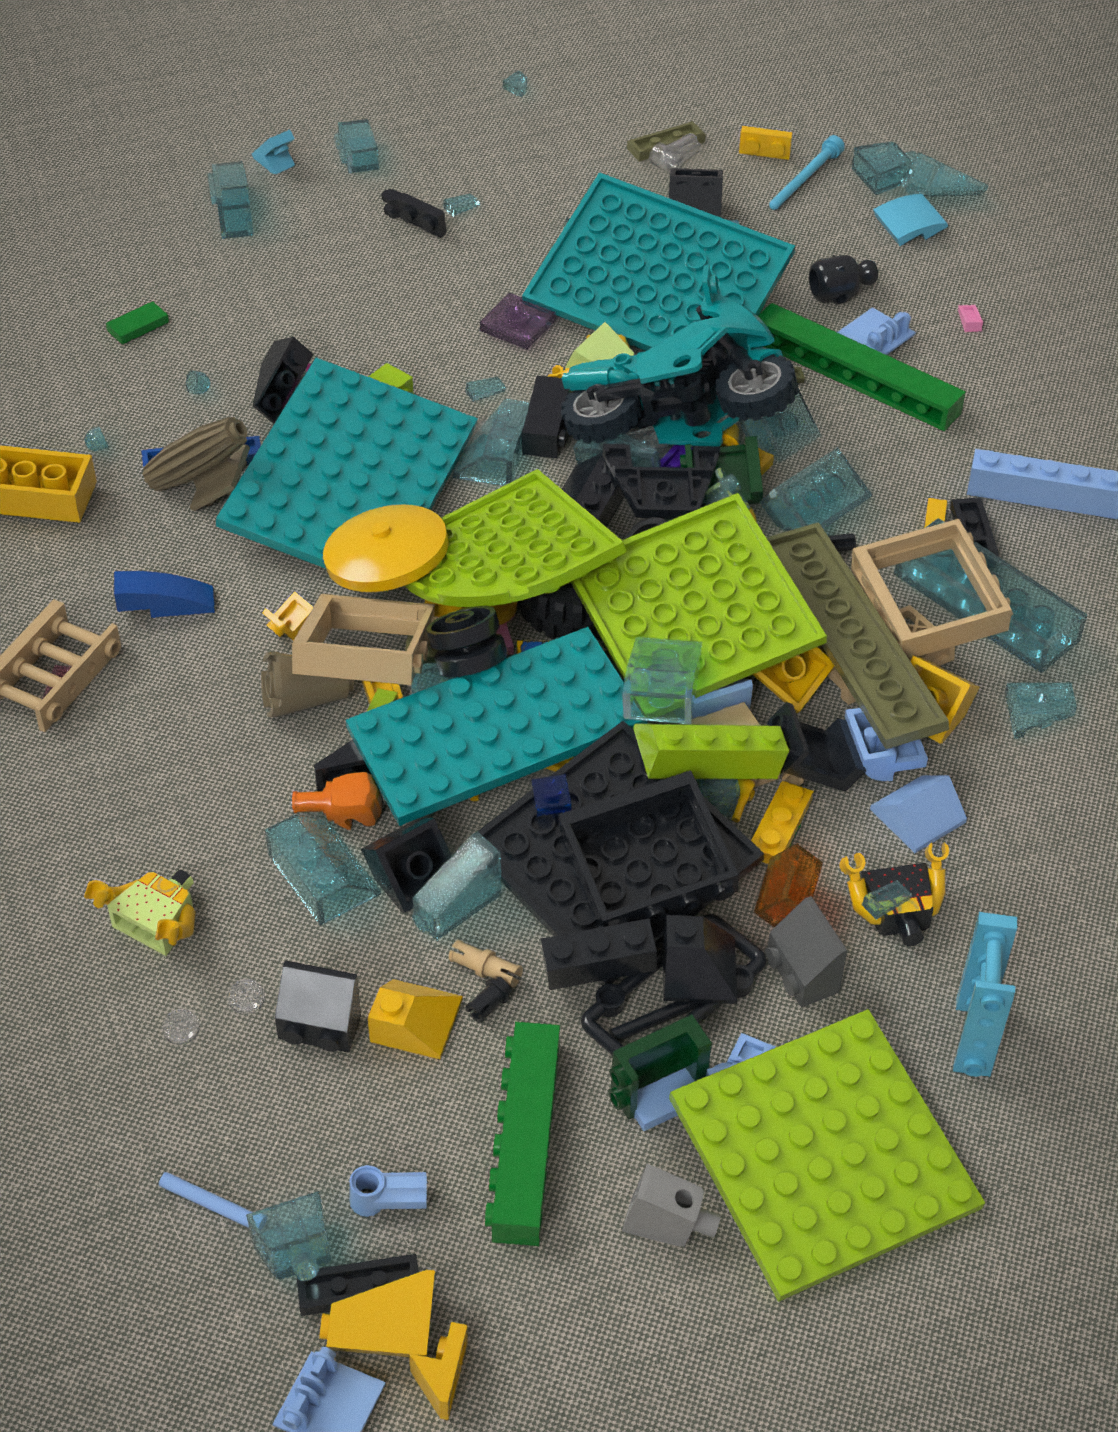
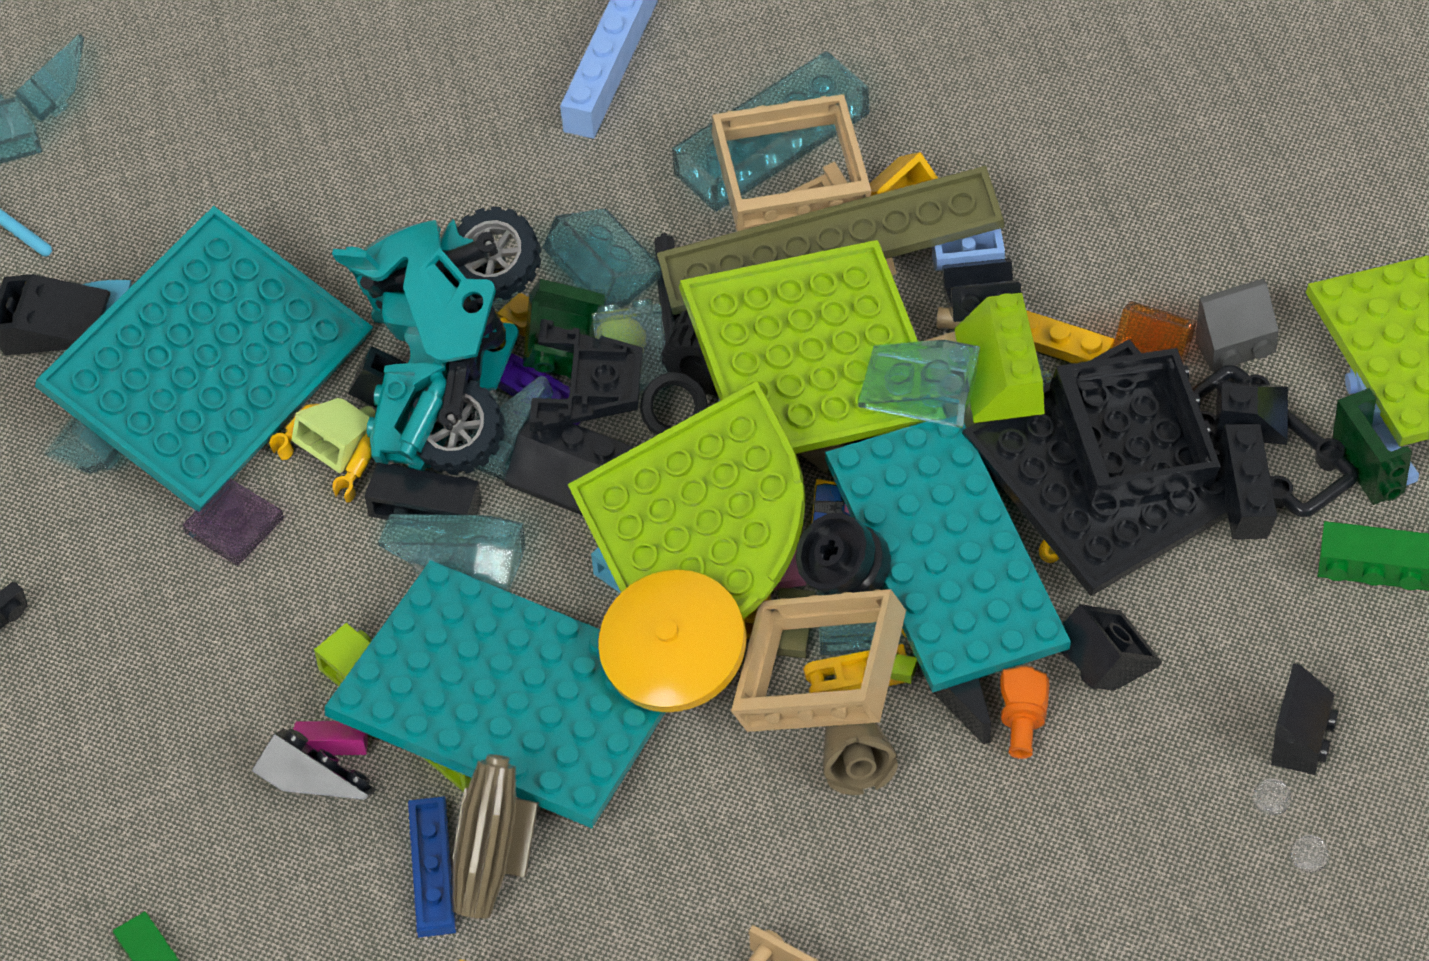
camera: 80 degrees left, 5 degrees up
(149, 908) = (1170, 874): torso -> none
(162, 594) = (687, 894): blue slope -> none
(197, 382) = (284, 874): clear light blue hinge -> none
(289, 616) = (737, 758): yellow bracket -> none
(319, 867) = (1110, 732): clear light blue slope -> none
(413, 1018) = (1287, 643): yellow slope -> none
(459, 888) = (1150, 600): clear light blue slope -> none
(484, 388) = (348, 566): clear light blue piece -> none
(485, 963) = (1233, 590): tan pin -> none
(494, 993) = (1276, 589): black pin -> none
(551, 795) = (1052, 502): clear blue plate -> none
(651, 1019) = (1298, 469): black bar -> none
(748, 1047) = (1330, 391): light blue tile -> none
(840, 277) = (221, 188): black piece -> none
(863, 368) = (387, 192): green brick -> none
(879, 330) = (316, 177): light blue hinge -> none
(886, 899) = (1180, 256): clear light blue piece -> none
(909, 218) = (109, 121): medium azure slope -> none
(914, 915) = (1161, 250): torso -> none
(921, 810) = (1044, 231): light blue slope -> none
(935, 509) = (629, 167): yellow piece -> none
(970, 318) = (301, 93): bright pink piece -> none
(975, 520) = (657, 133): black plate -> none
(984, 995) = (1283, 193): medium azure fence -> none
(1038, 705) = (913, 123): clear light blue wing -> none

